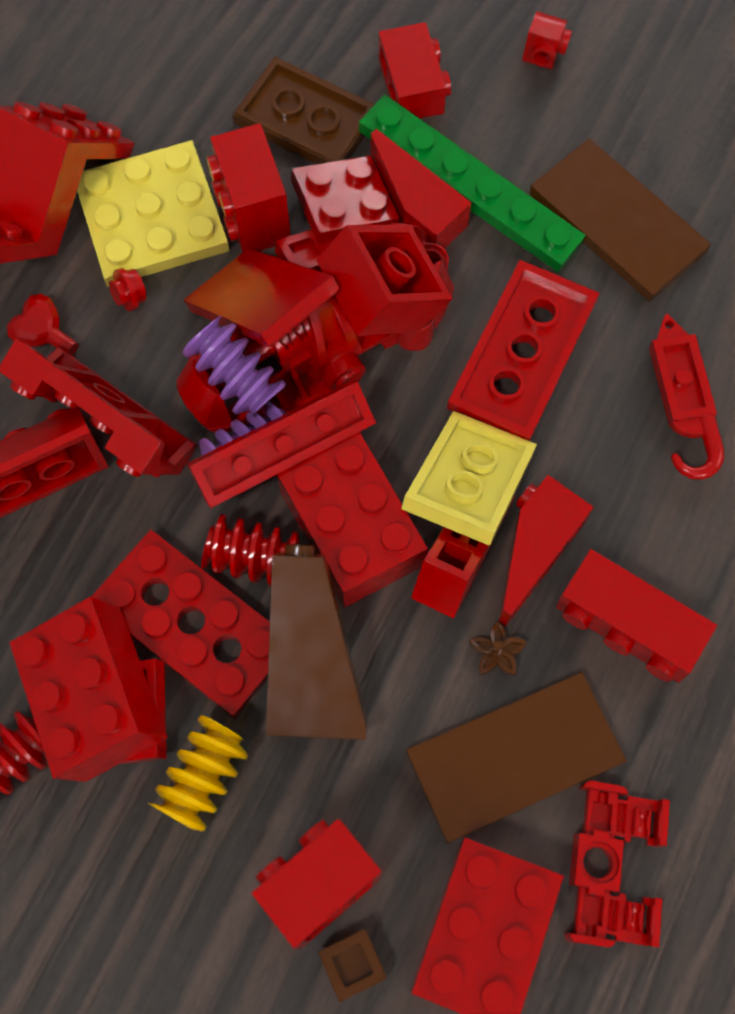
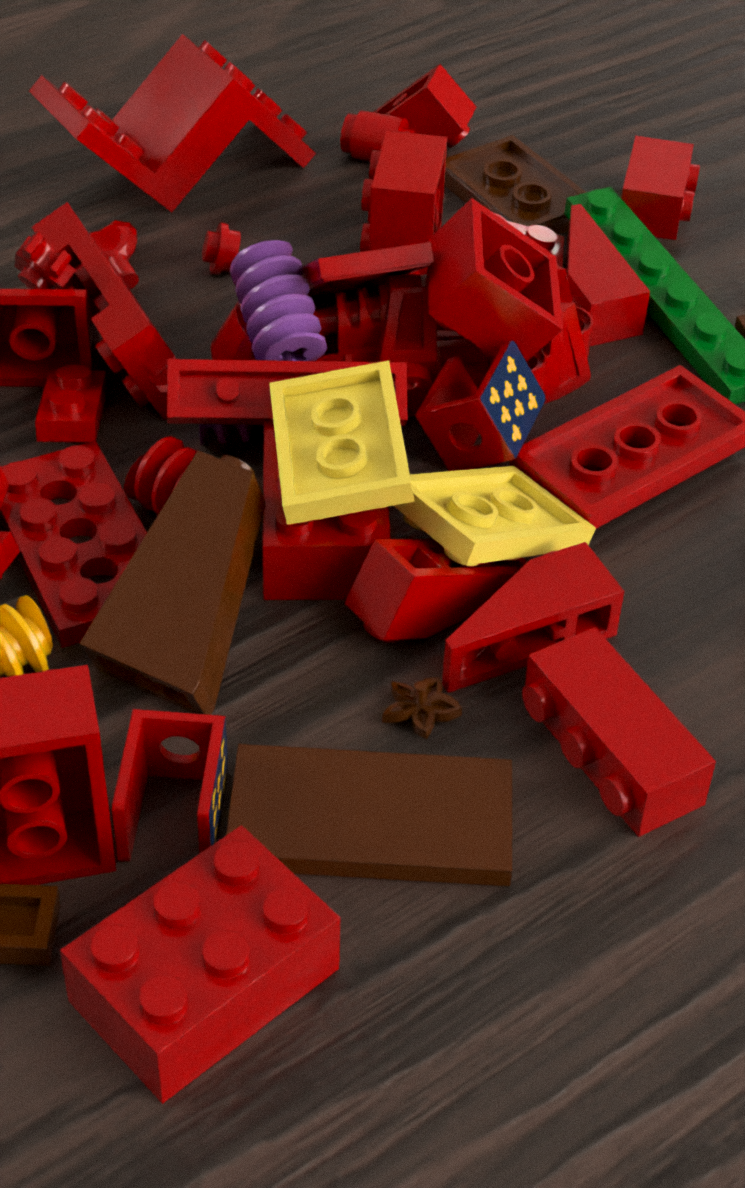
camera: 25 degrees right, 25 degrees down
(35, 411) = (42, 265): none -> red plate
(113, 505) = (71, 405): none -> red plate
(151, 212) = (293, 201): light yellow plate -> none
(176, 108) = (366, 132): none -> red brick
(196, 69) = (433, 106): none -> red slope
(358, 488) = (339, 443): none -> light yellow plate
(397, 769) = (148, 757): none -> red piece
(435, 379) = (498, 411): none -> red piece
(607, 914) = (432, 937): red piece -> none

